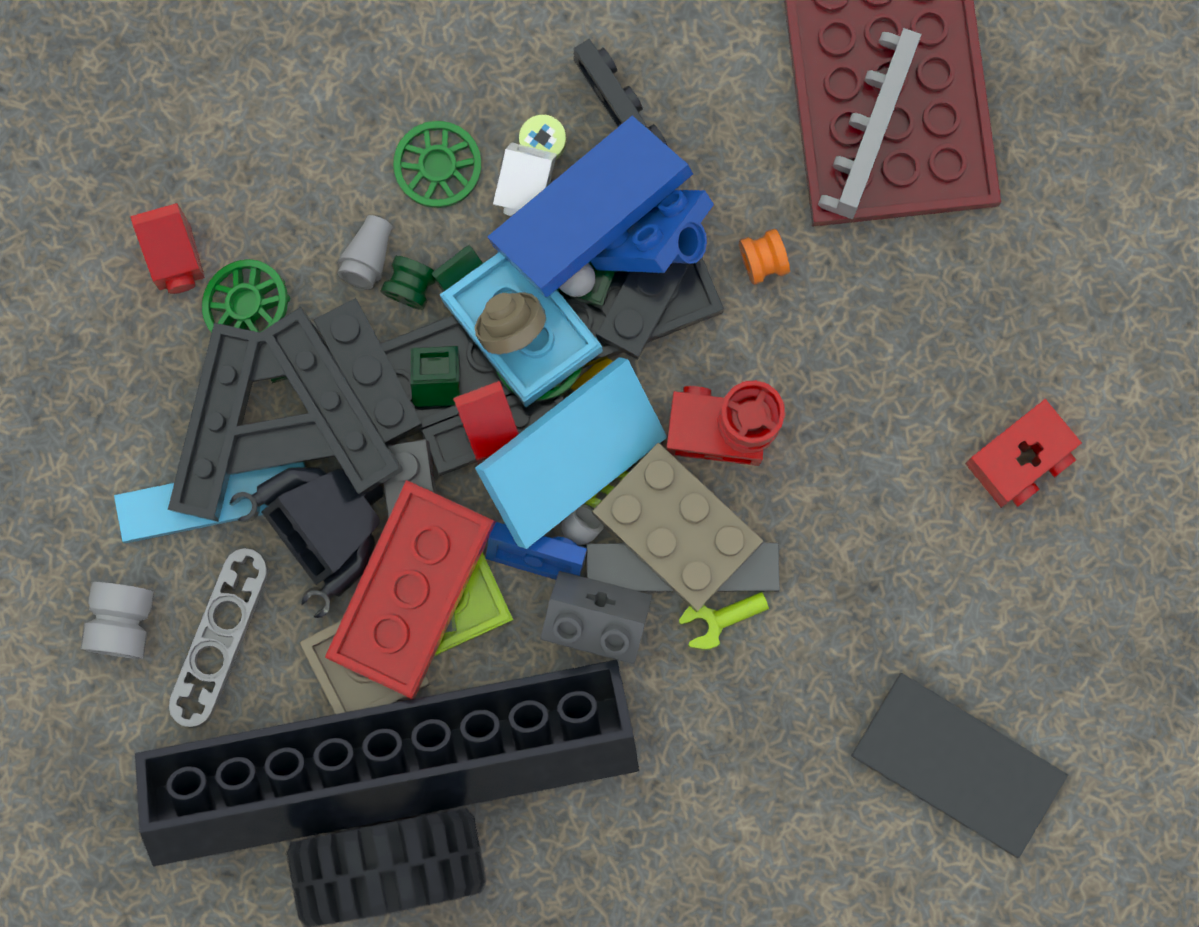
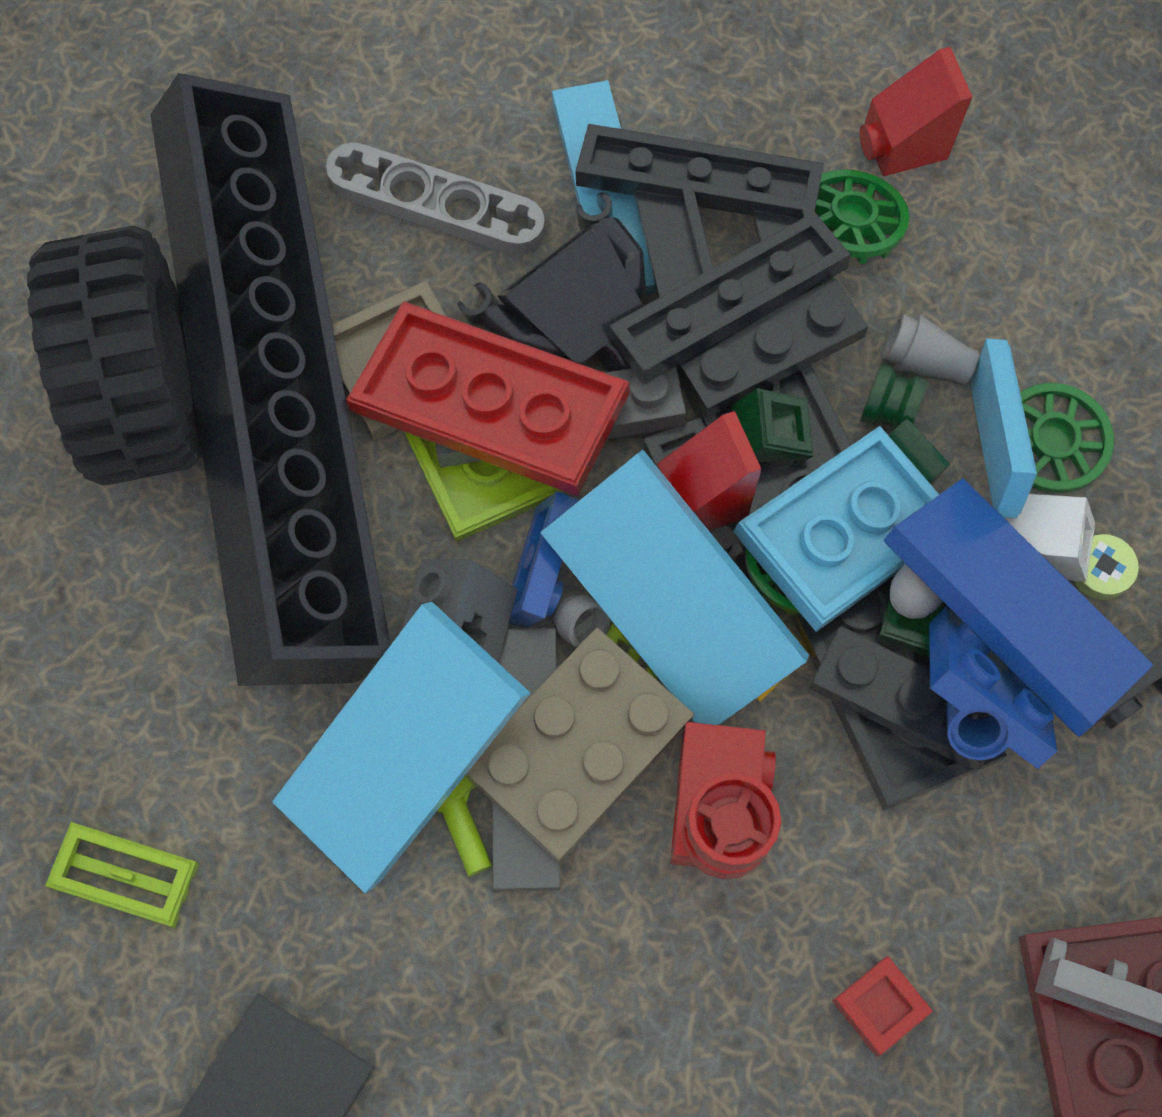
camera: 90 degrees right, 10 degrees down
(117, 620) = (453, 81): light grey wheel -> none
(442, 204) = (1002, 428): none -> medium azure tile
(510, 322) = (846, 494): dark tan plate -> none
(686, 651) = (400, 746): none -> medium azure tile
(764, 256) = (968, 863): orange wheel -> none
(778, 820) = (175, 893): none -> lime tile
(860, 323) = (882, 1006): none -> red plate

